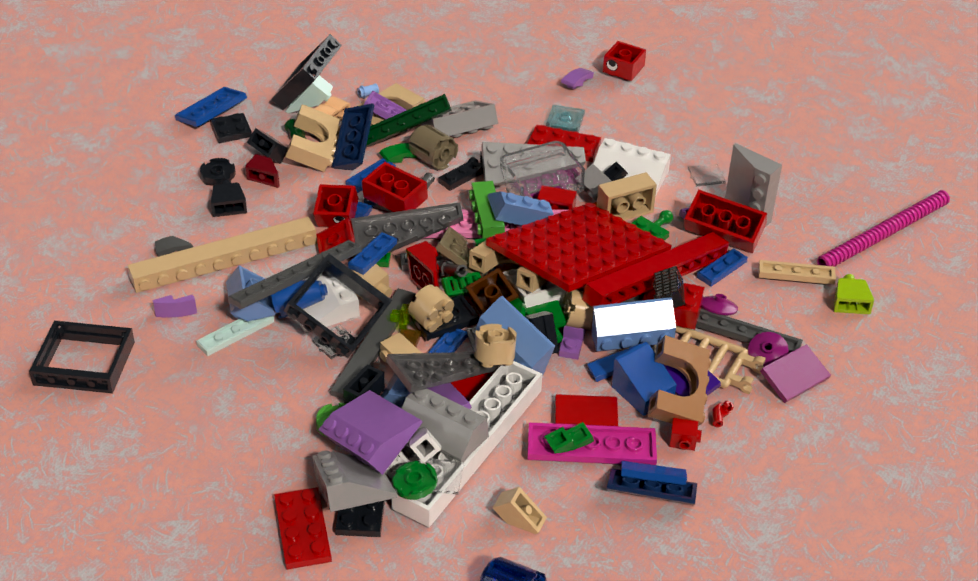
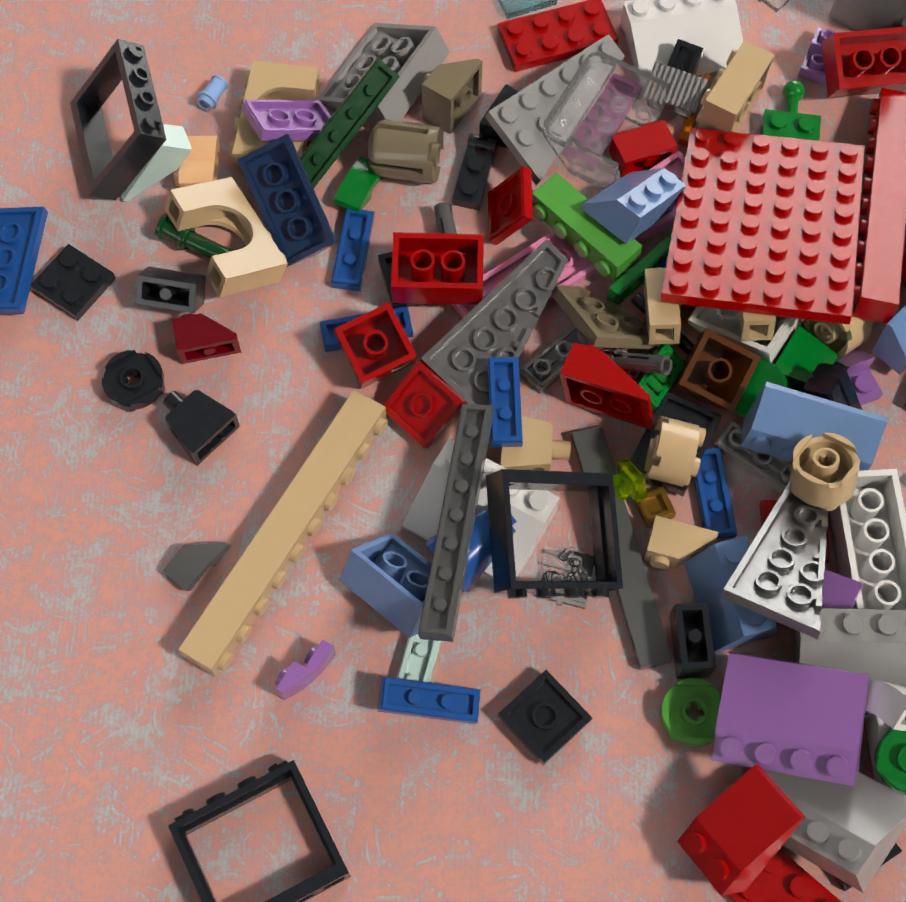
camera: 35 degrees left, 25 degrees up
(217, 346) = (429, 700): none -> blue tile
(263, 382) = (544, 717): none -> black plate
(296, 461) = (741, 831): none -> red slope
(460, 187) = (510, 205): none -> red tile
(476, 130) = (451, 92): none -> dark tan slope

